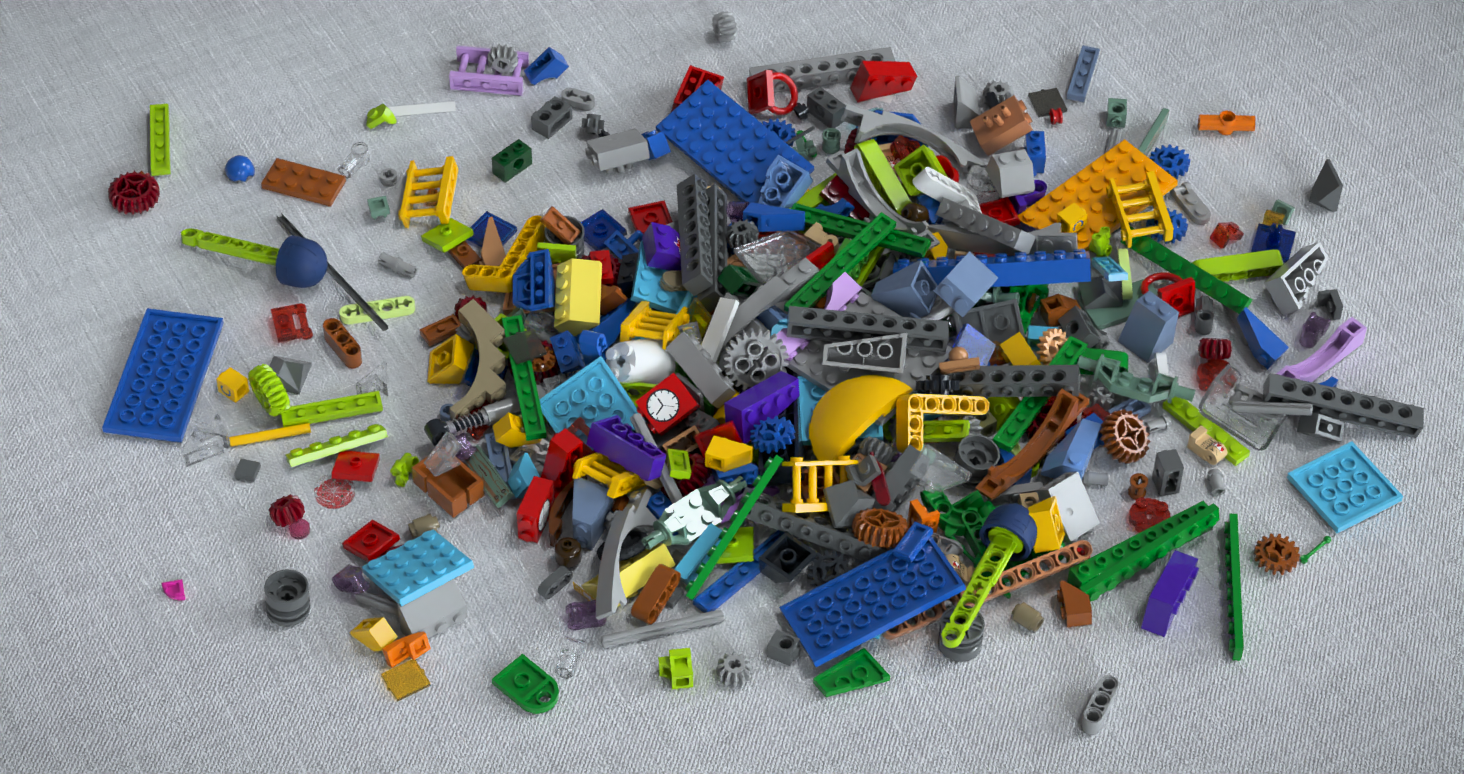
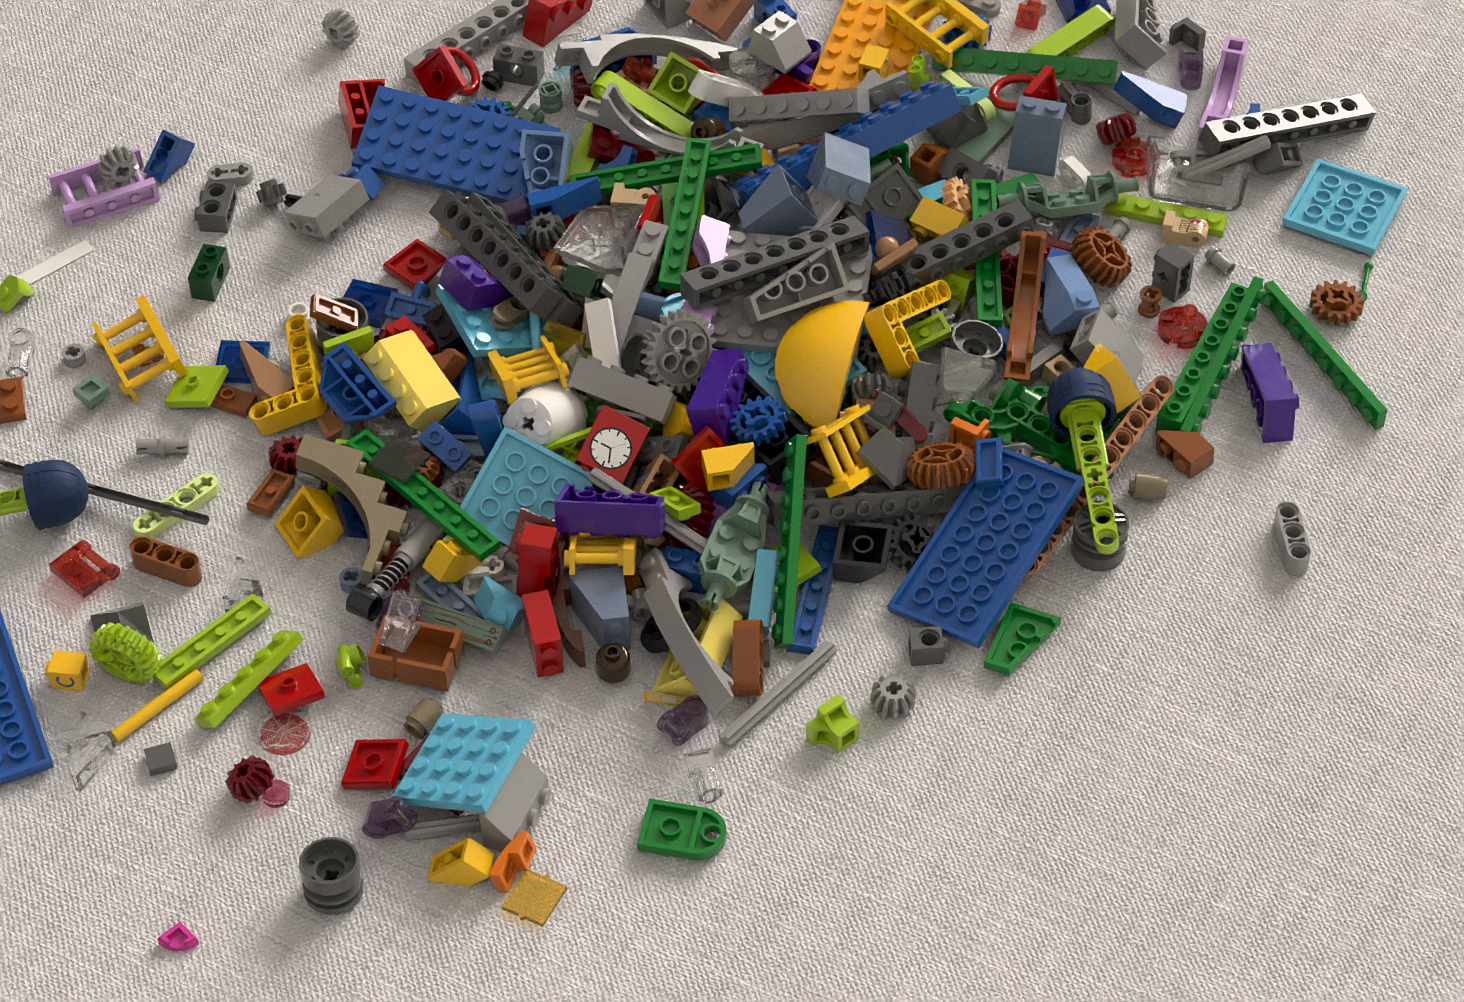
camera: 30 degrees left, 0 degrees up
(555, 582) = (622, 703): dark grey beam -> none

